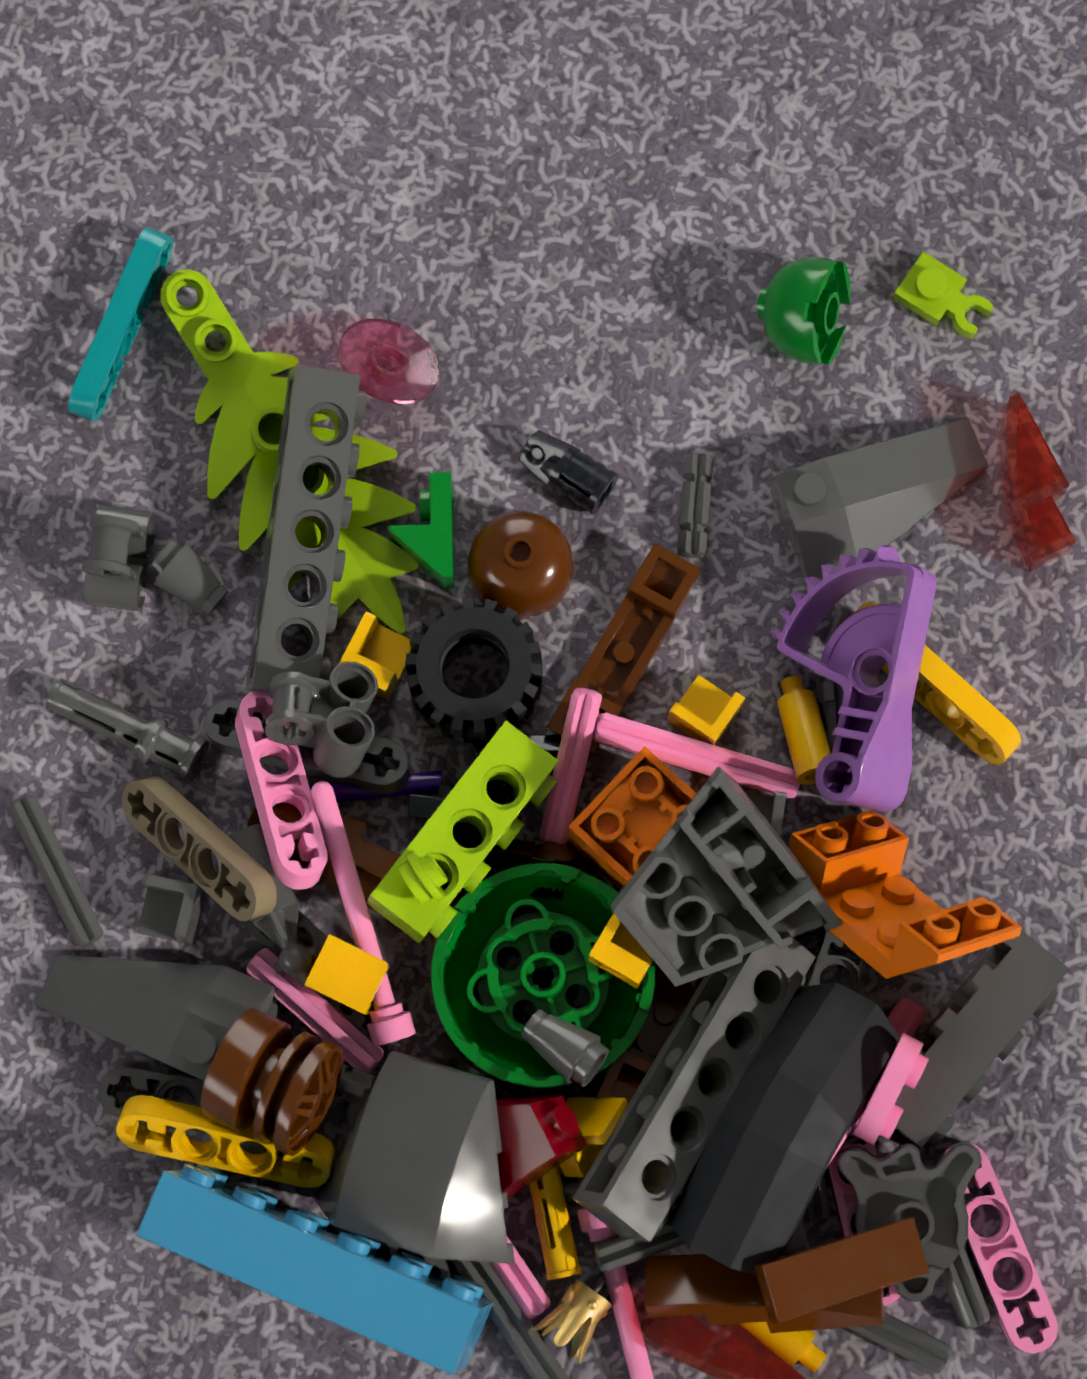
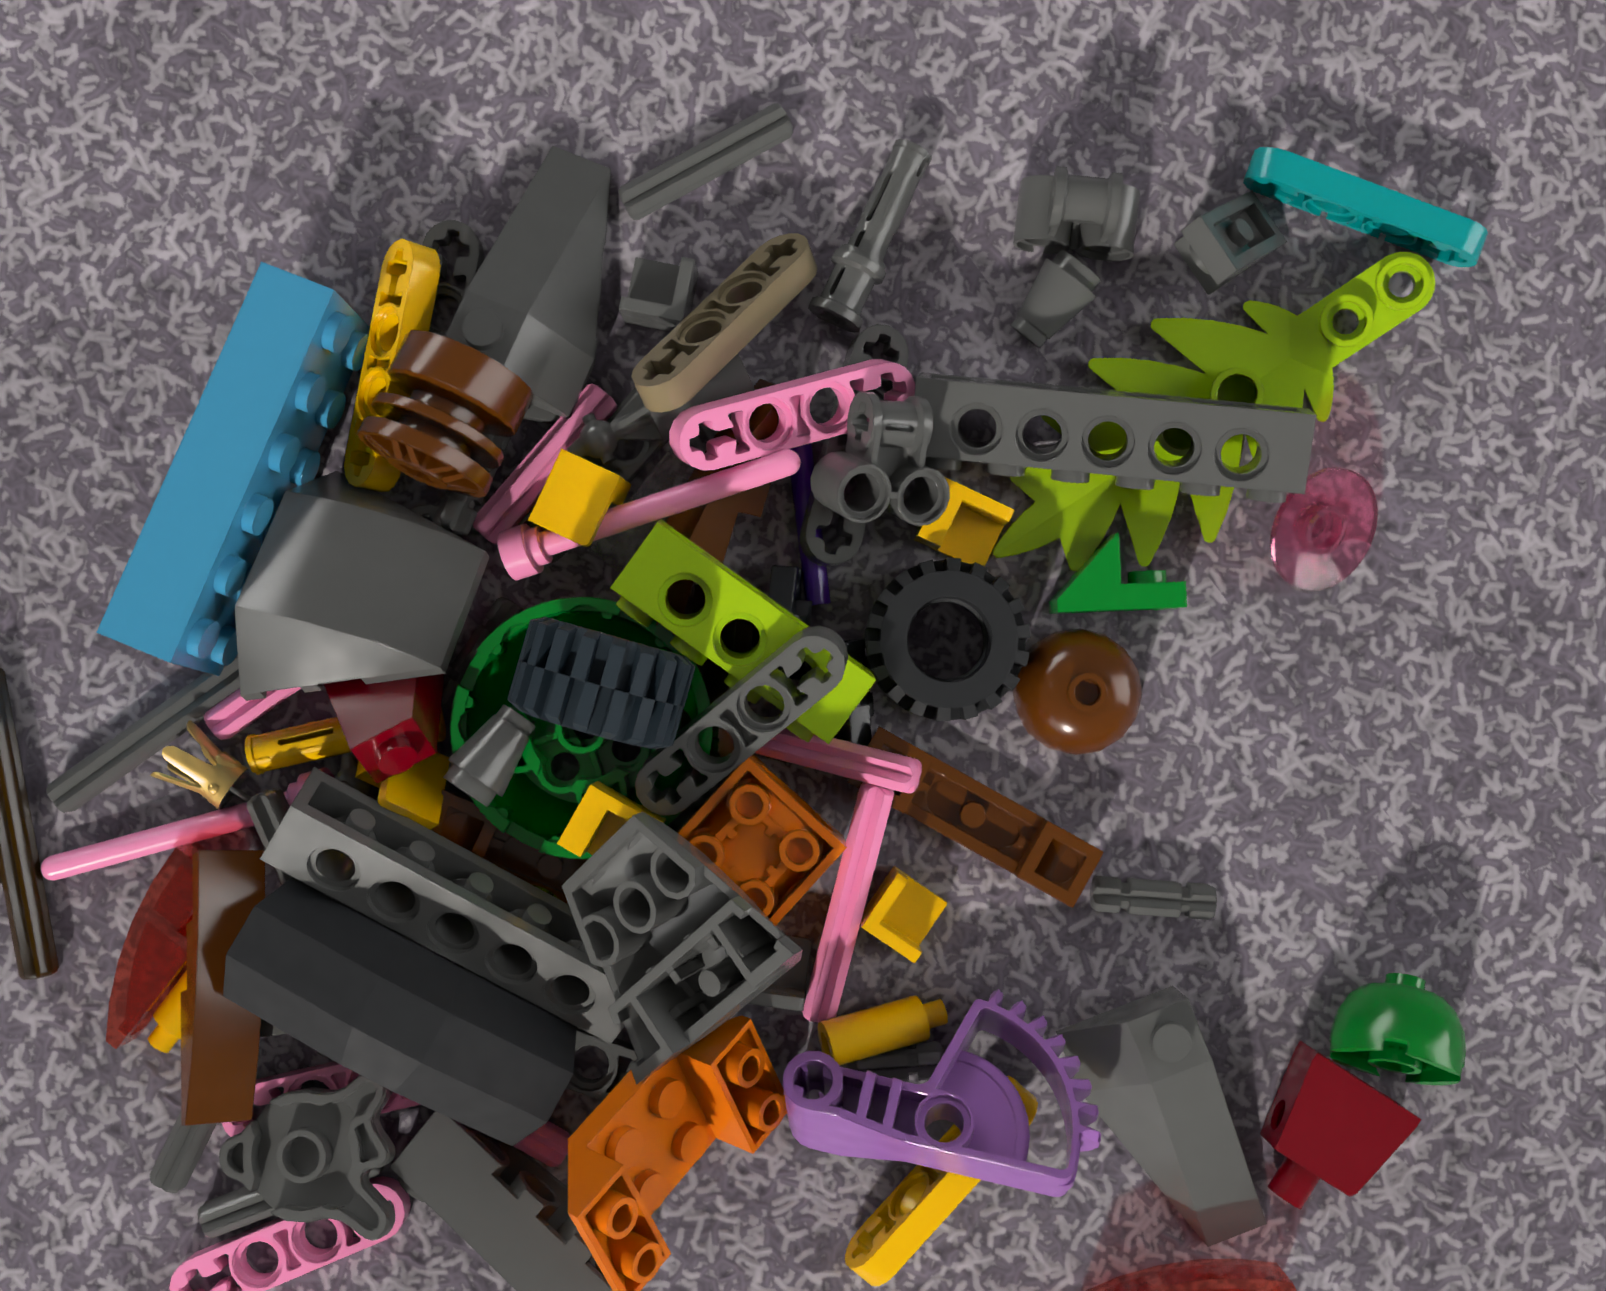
camera: 80 degrees right, 10 degrees up
(145, 433) = (1228, 241): none -> dark grey slope
(423, 877) = (675, 585): lime plate -> none
(502, 941) = (601, 684): none -> black wheel
(544, 825) = (745, 726): none -> dark grey beam
(568, 470) = (1193, 746): black hinge -> none
(841, 1269) = (235, 1080): reddish brown tile -> none
(884, 365) = (1330, 1128): none -> dark red torso
(902, 1069) = (467, 1152): bright pink plate -> none
(936, 291) = (1423, 1185): lime plate -> none

